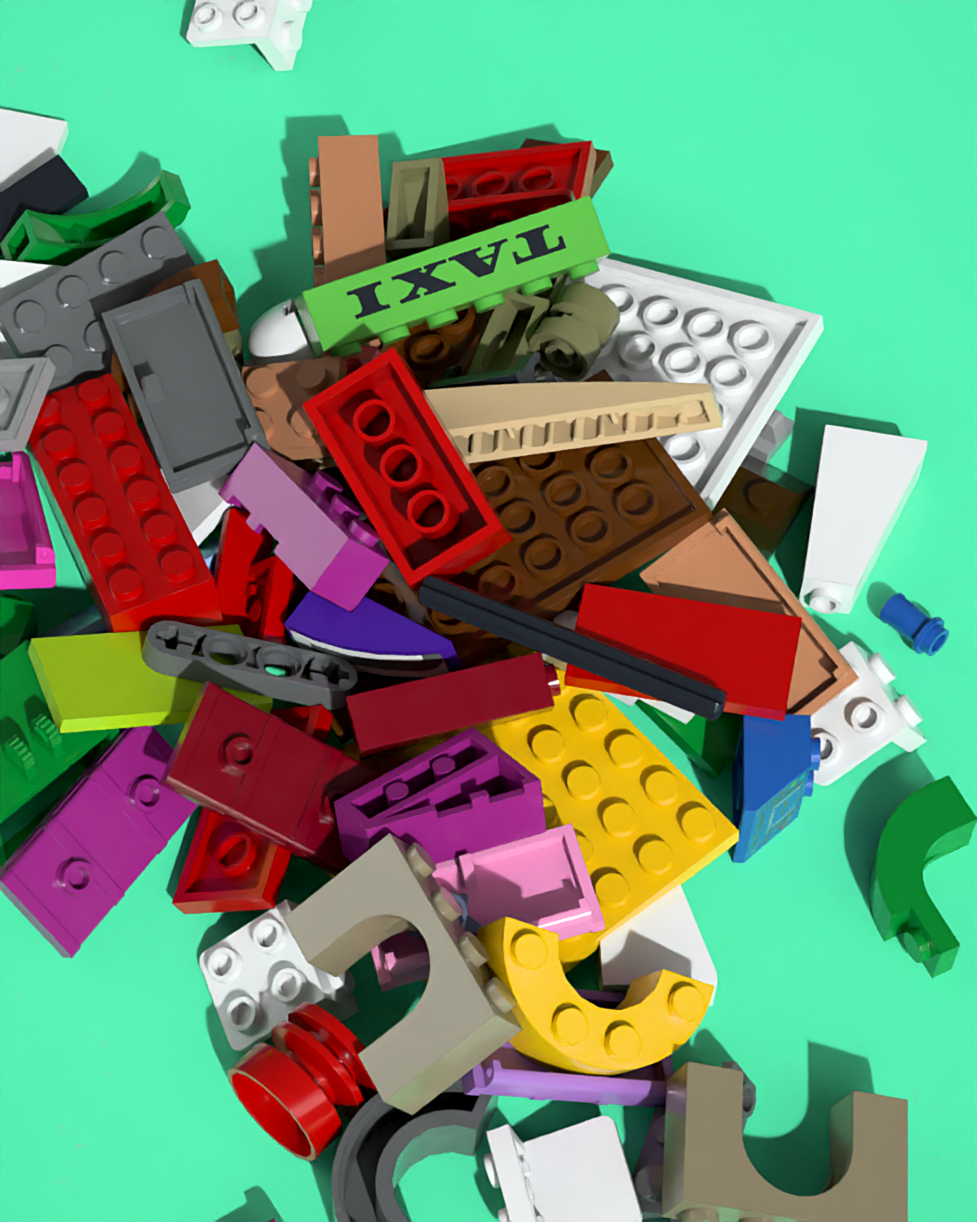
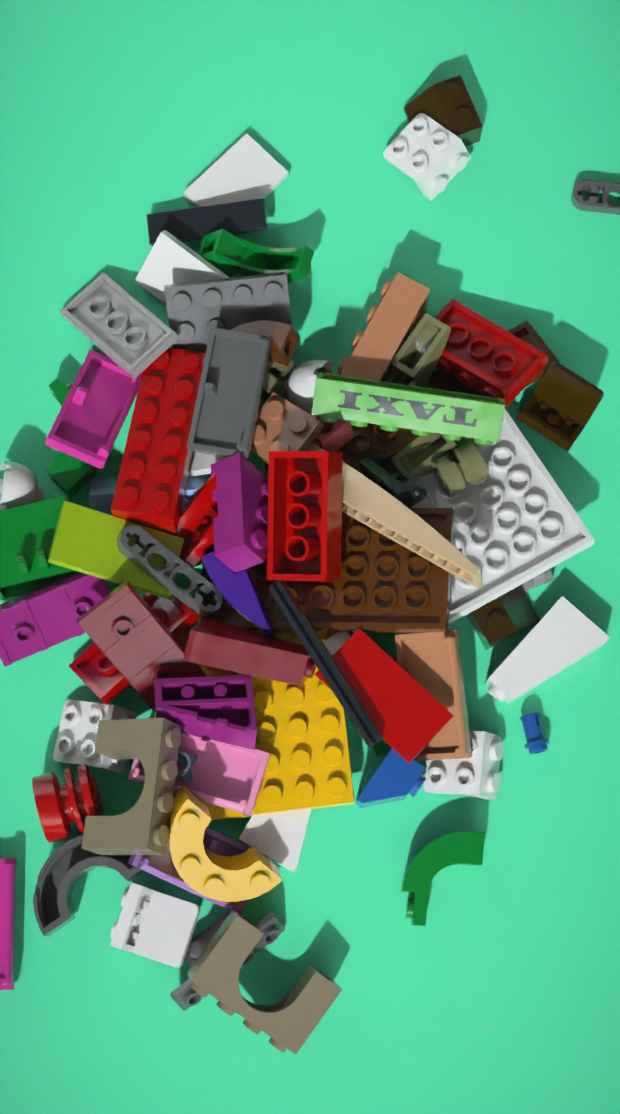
camera: 35 degrees right, 20 degrees up
(651, 201) = (561, 406): none -> dark brown bracket

